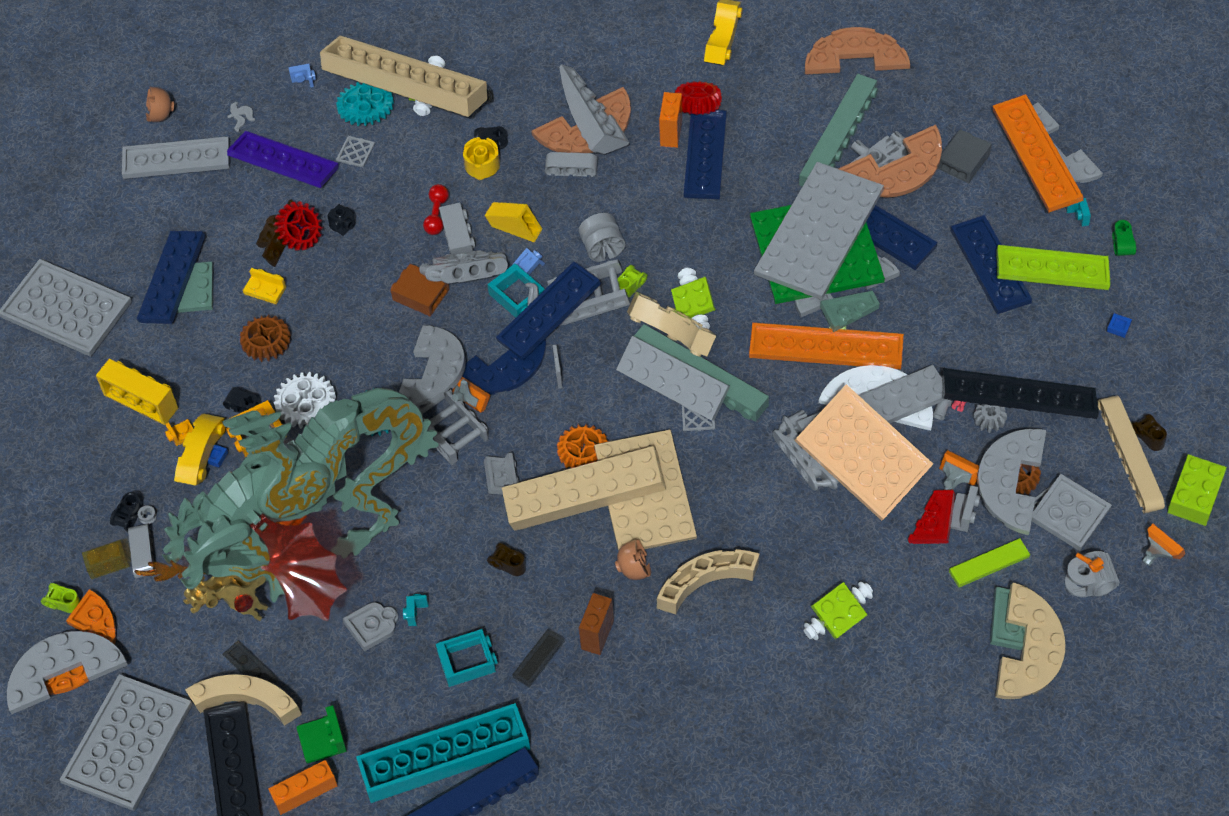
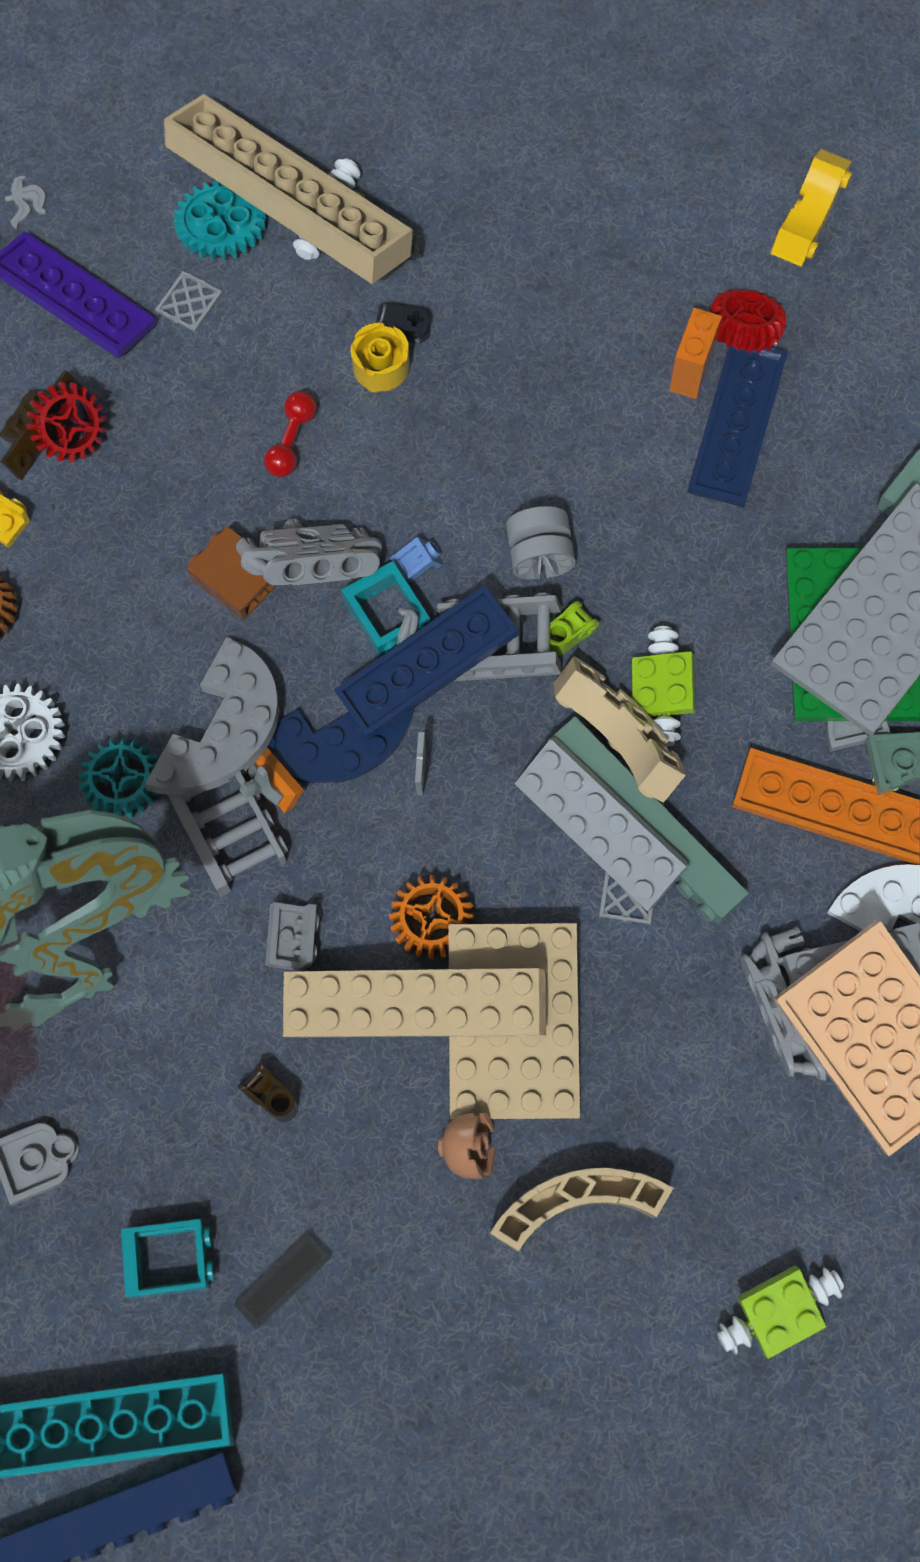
camera: 10 degrees right, 15 degrees up
(301, 73) = (132, 147): medium blue bracket -> none
(341, 219) = (138, 421): black brick -> none
(412, 603) = (96, 1154): teal bracket -> none
(456, 229) = (315, 479): light grey brick -> none
(514, 219) = (409, 480): yellow slope -> none
(562, 138) = (567, 347): nougat plate -> none
(571, 164) = (520, 395): light grey beam -> none
(595, 125) = (573, 338): light grey wedge -> none
(596, 624) = (383, 1255): dark orange brick -> none

